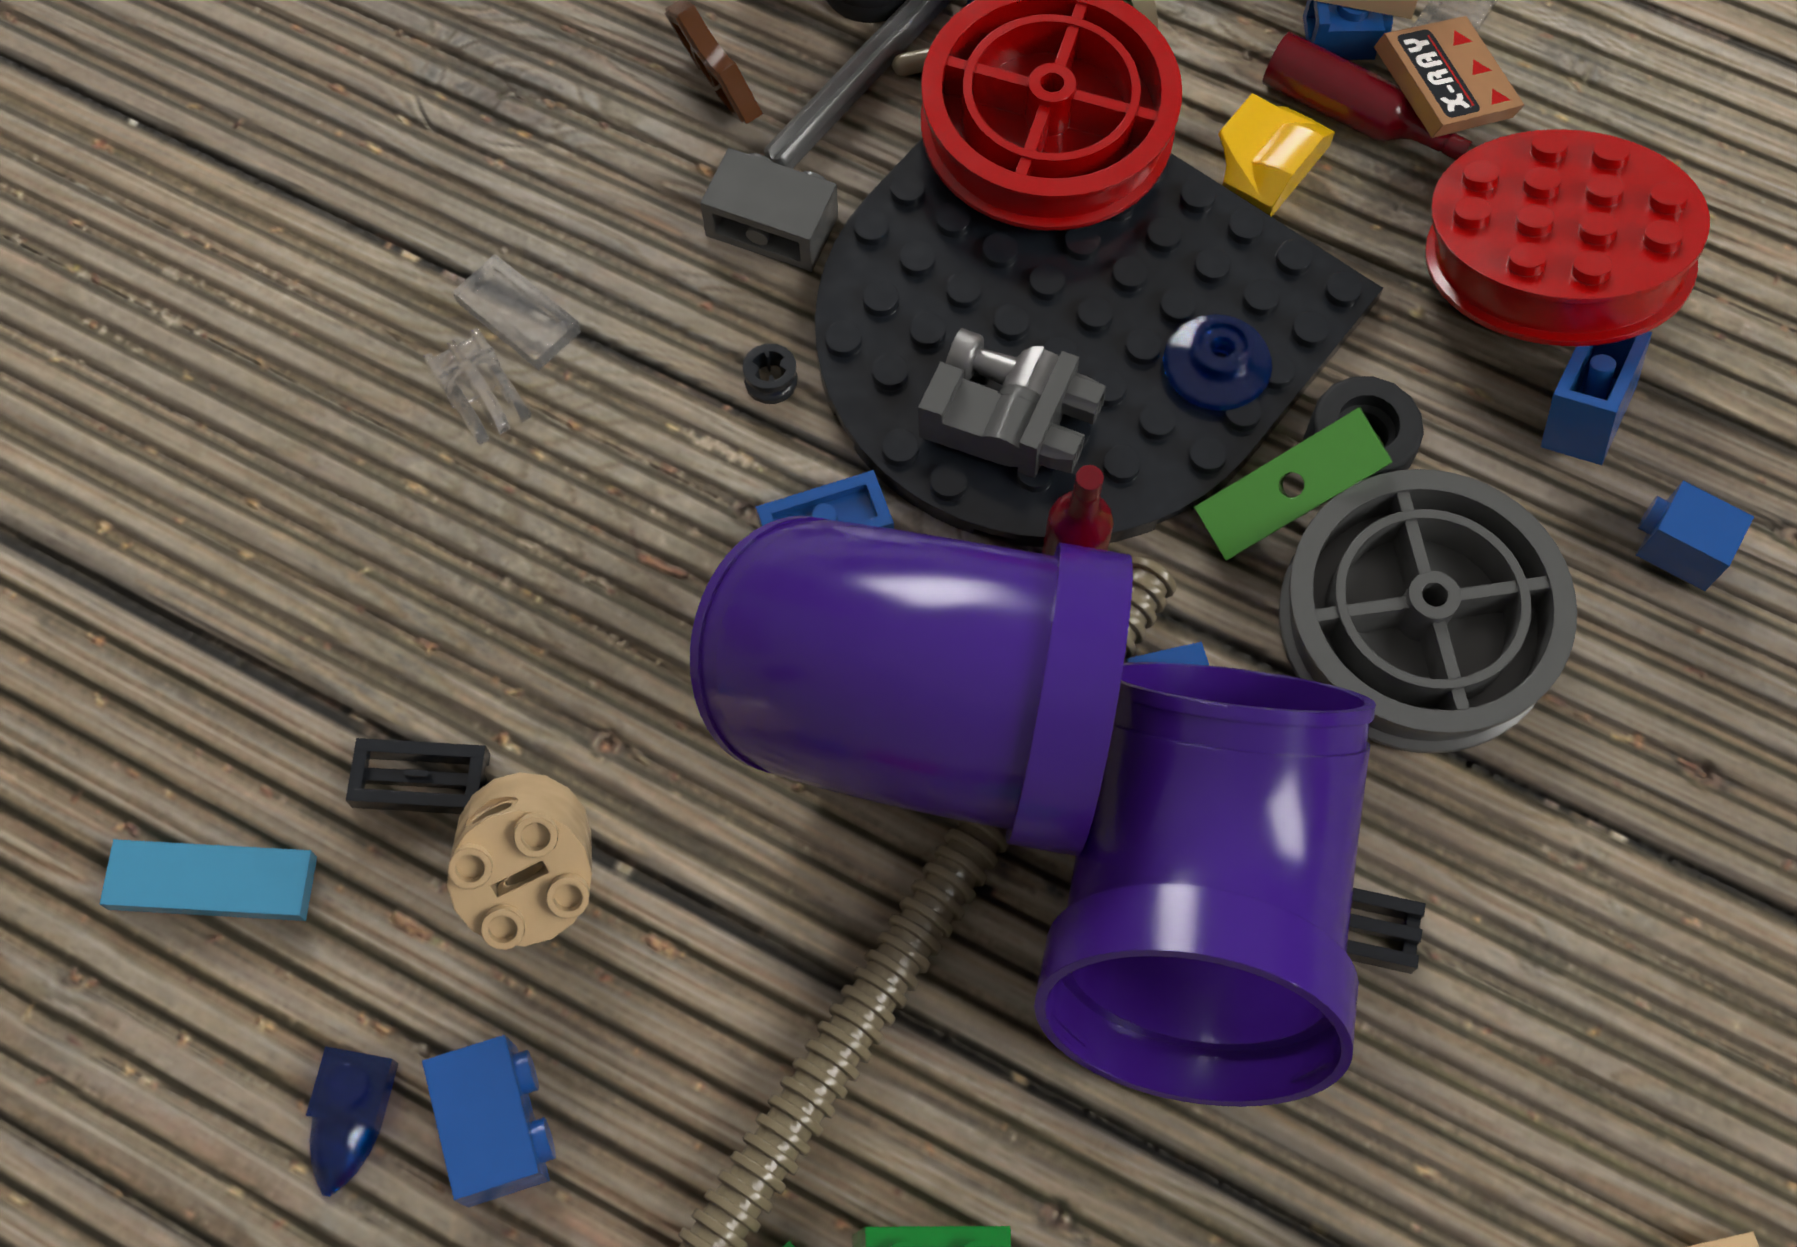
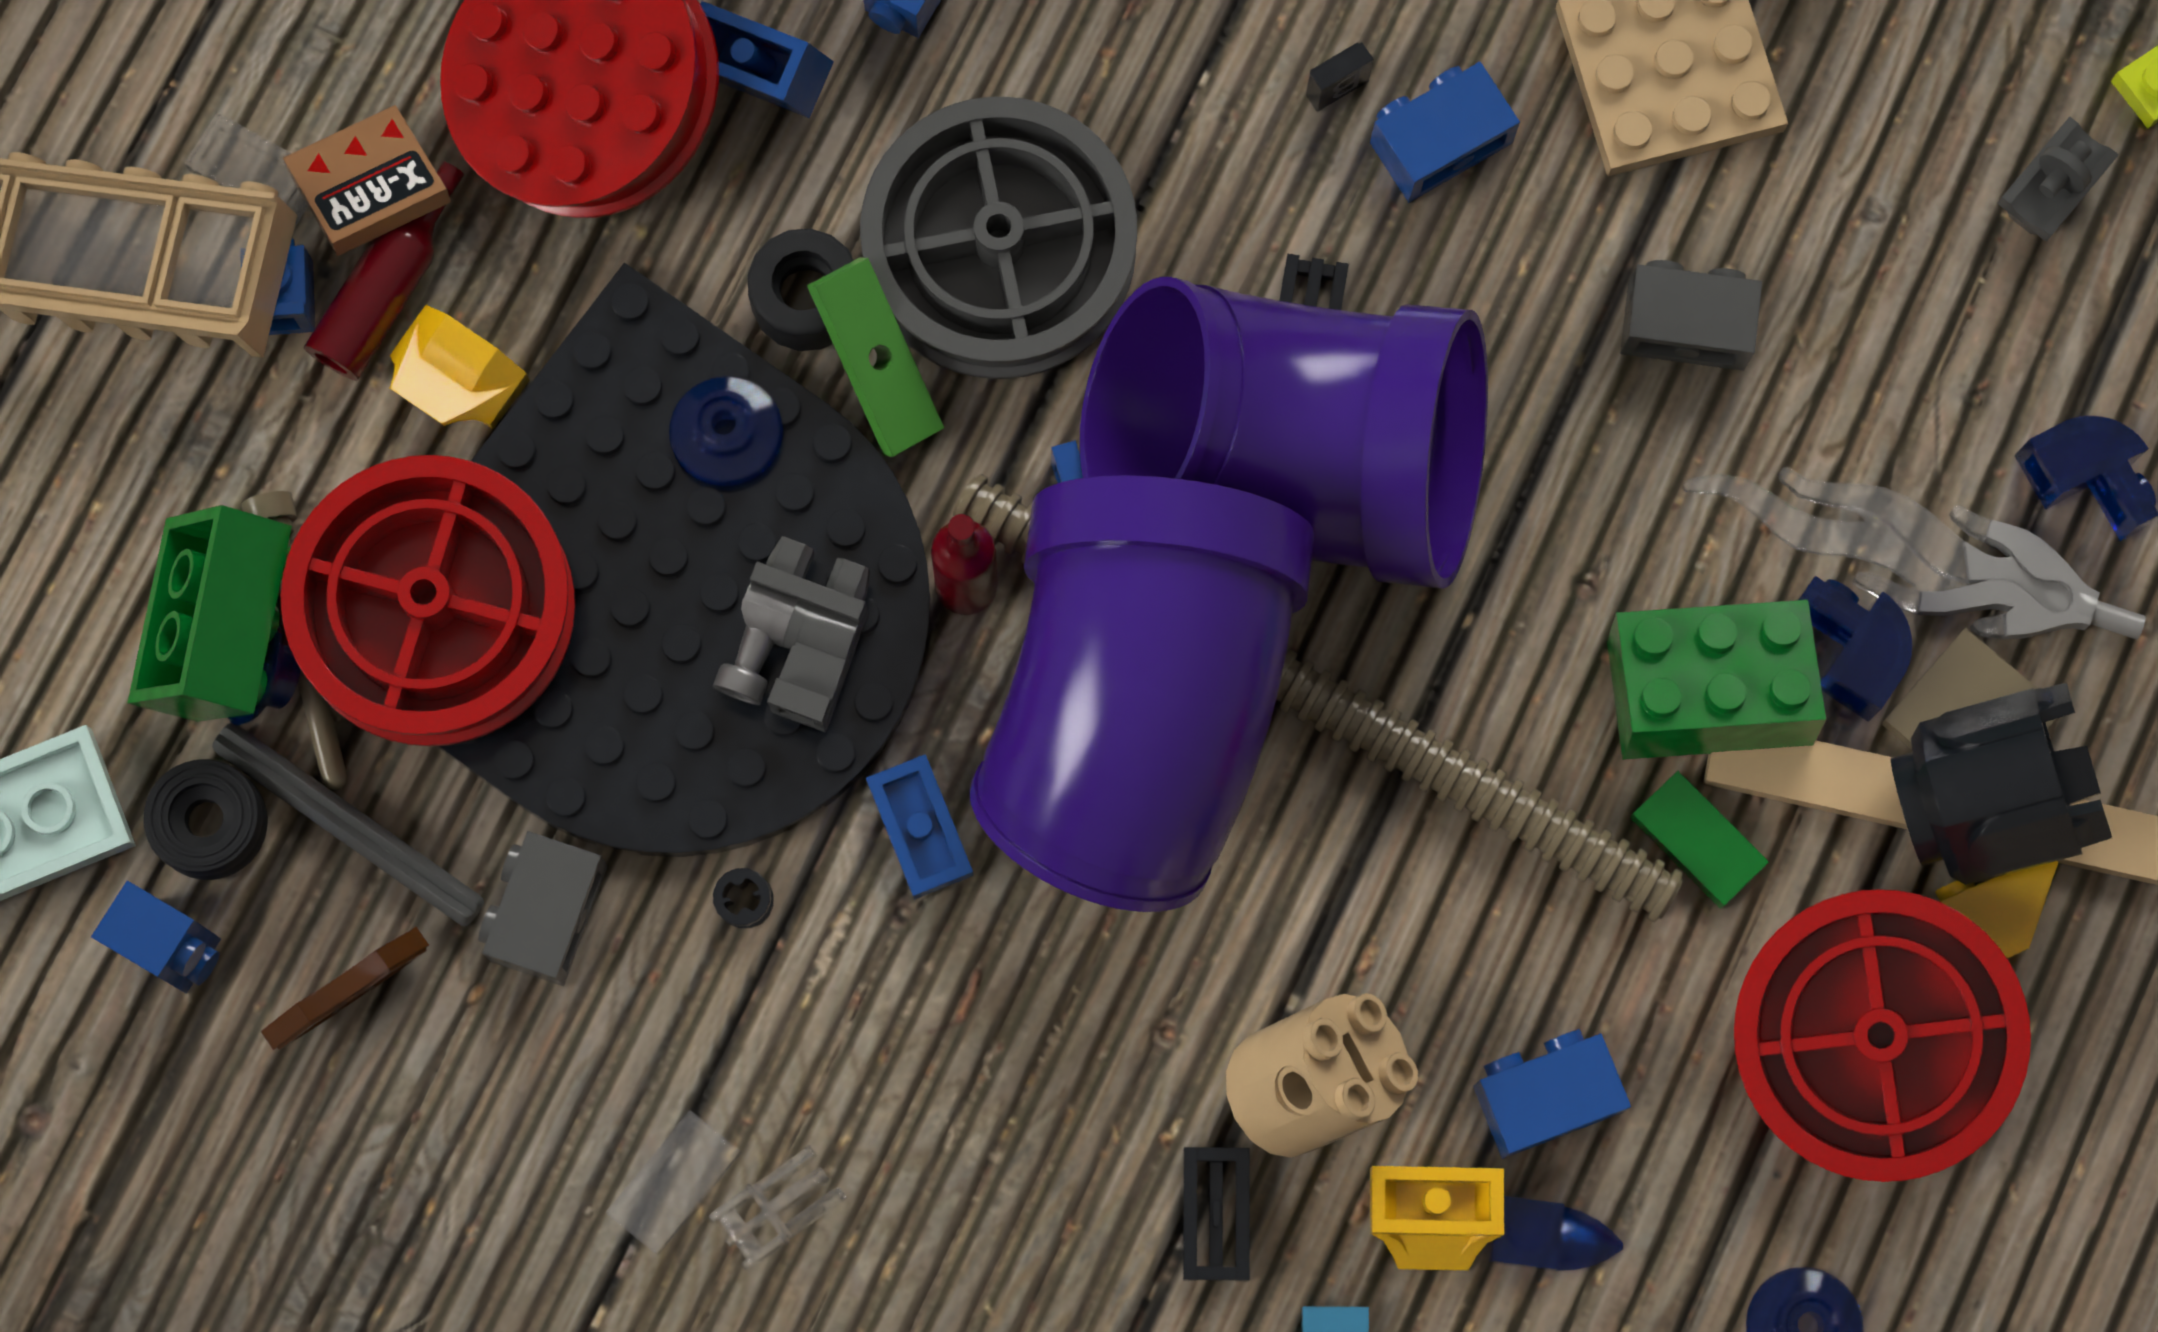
camera: 95 degrees left, 10 degrees up
(387, 989) = (1436, 1214): none -> yellow slope
(1580, 1083) = (1443, 130): none -> blue brick
(1633, 969) = (1339, 76): none -> black tile

